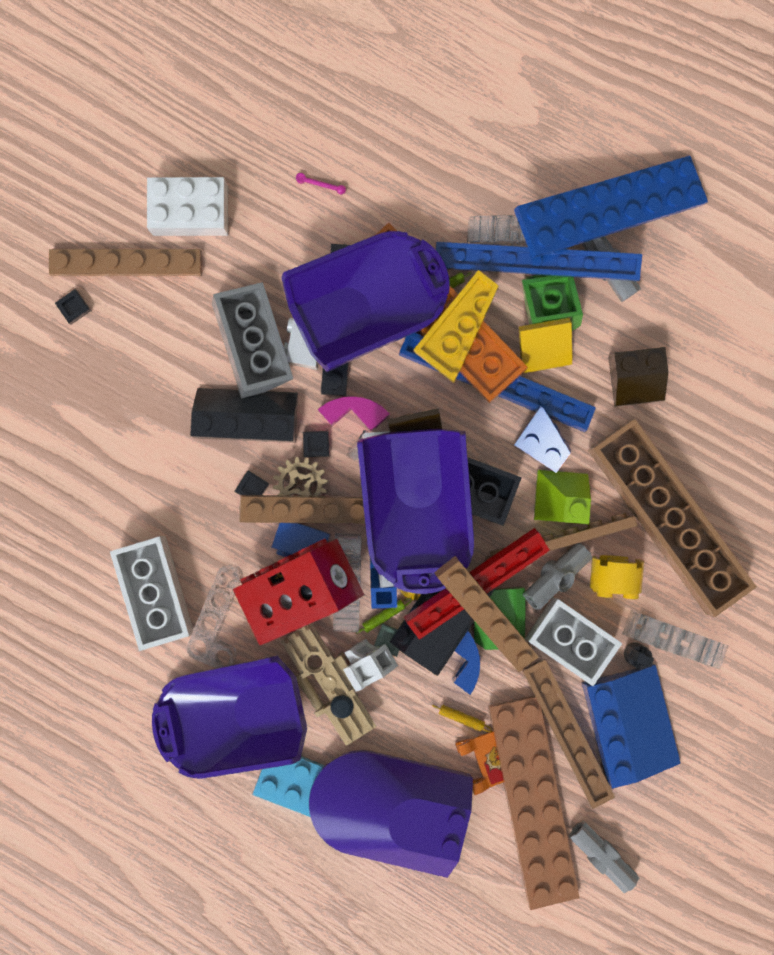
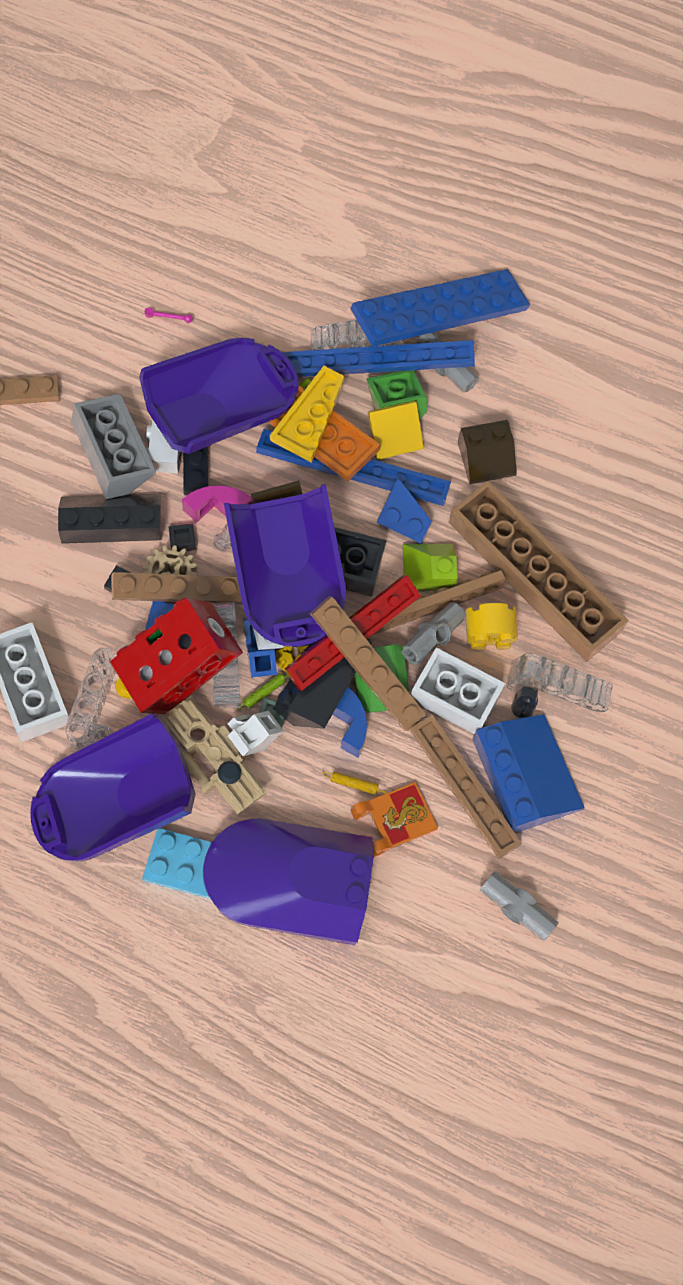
camera: 10 degrees left, 20 degrees down
(187, 206) = (43, 339): white brick -> none
(533, 802) = (439, 861): nougat plate -> none

